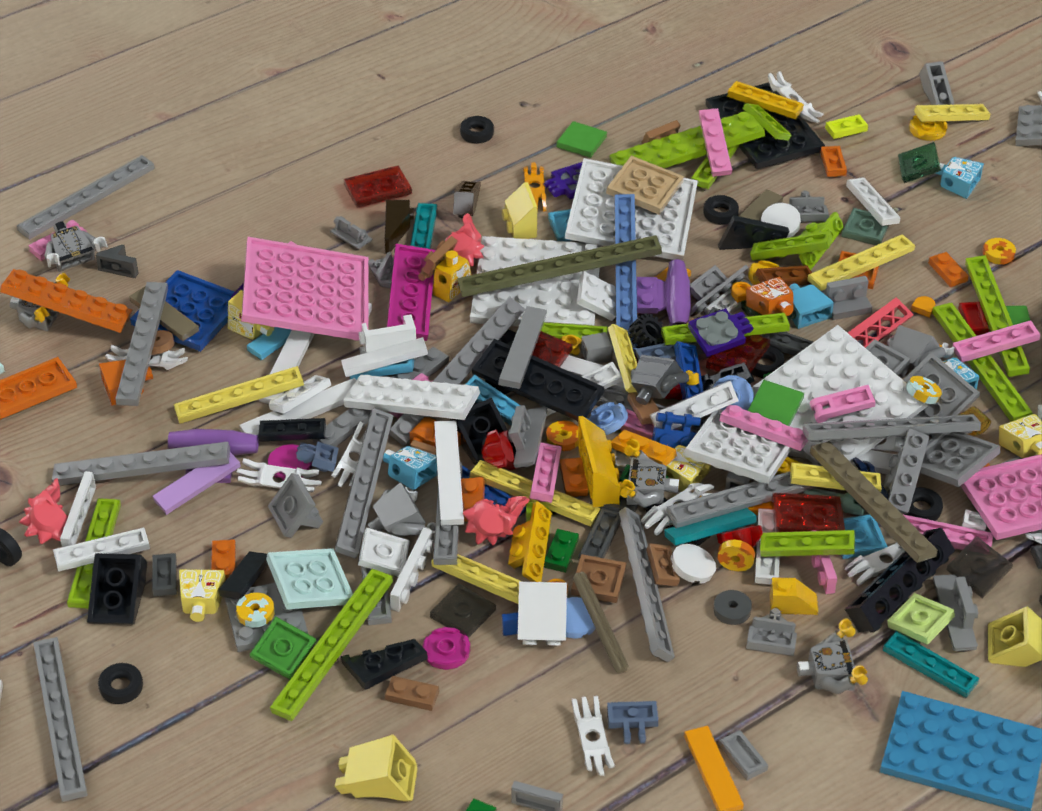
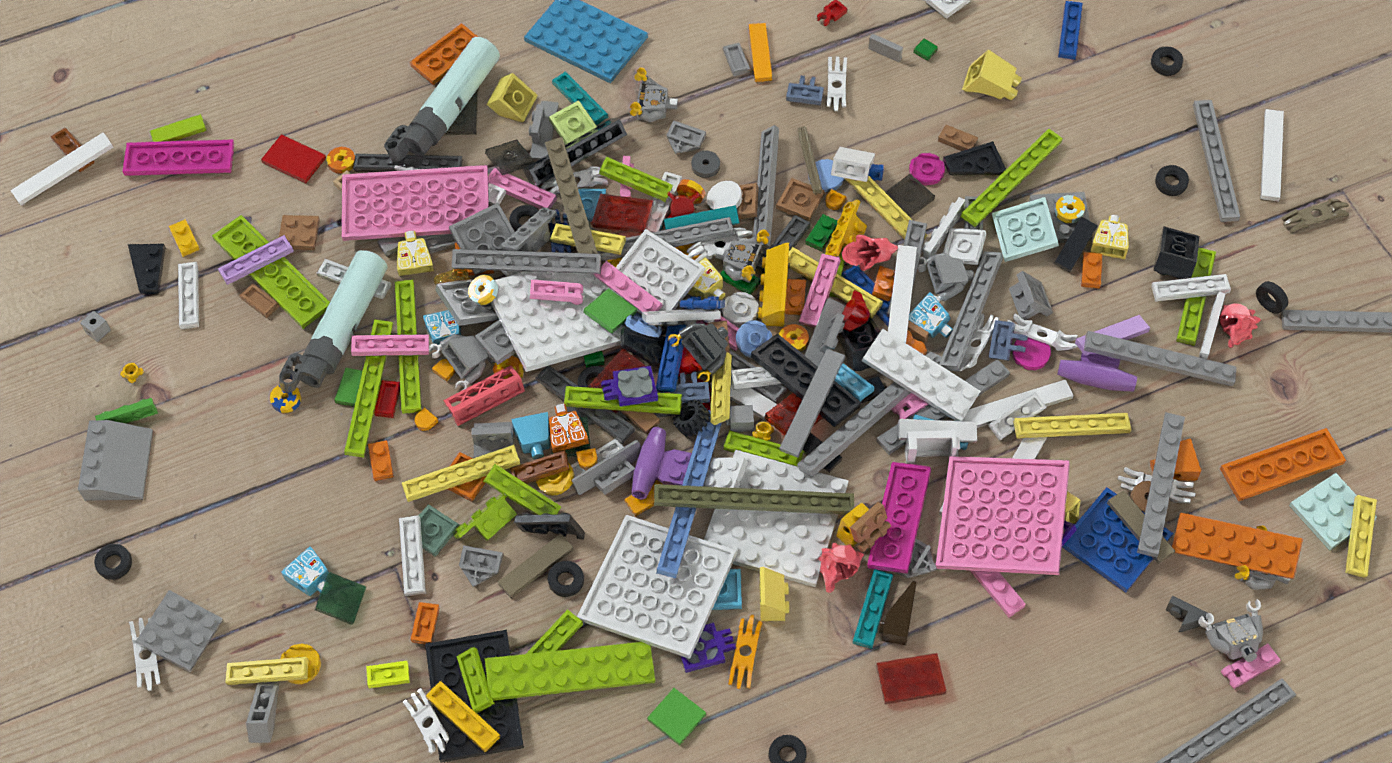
camera: 165 degrees left, 15 degrees up
(164, 574) = (1139, 261): dark grey plate -> none
(283, 648) = (1050, 181): bright green tile -> none
(292, 429) = (1027, 374): black tile -> none
(350, 233) = (946, 615): light grey hinge -> none
(466, 198) = (819, 642): dark brown slope -> none
(649, 183) = (637, 600): tan plate -> none
(654, 450) = (733, 295): light orange plate -> none
(662, 131) = (591, 697): medium nougat plate -> none
(715, 142) = (544, 648): bright pink plate -> none
(783, 215) = (514, 544): white tile -> none
(792, 597) = (660, 157): yellow slope -> none
(999, 251) = (321, 466): yellow piece -> none

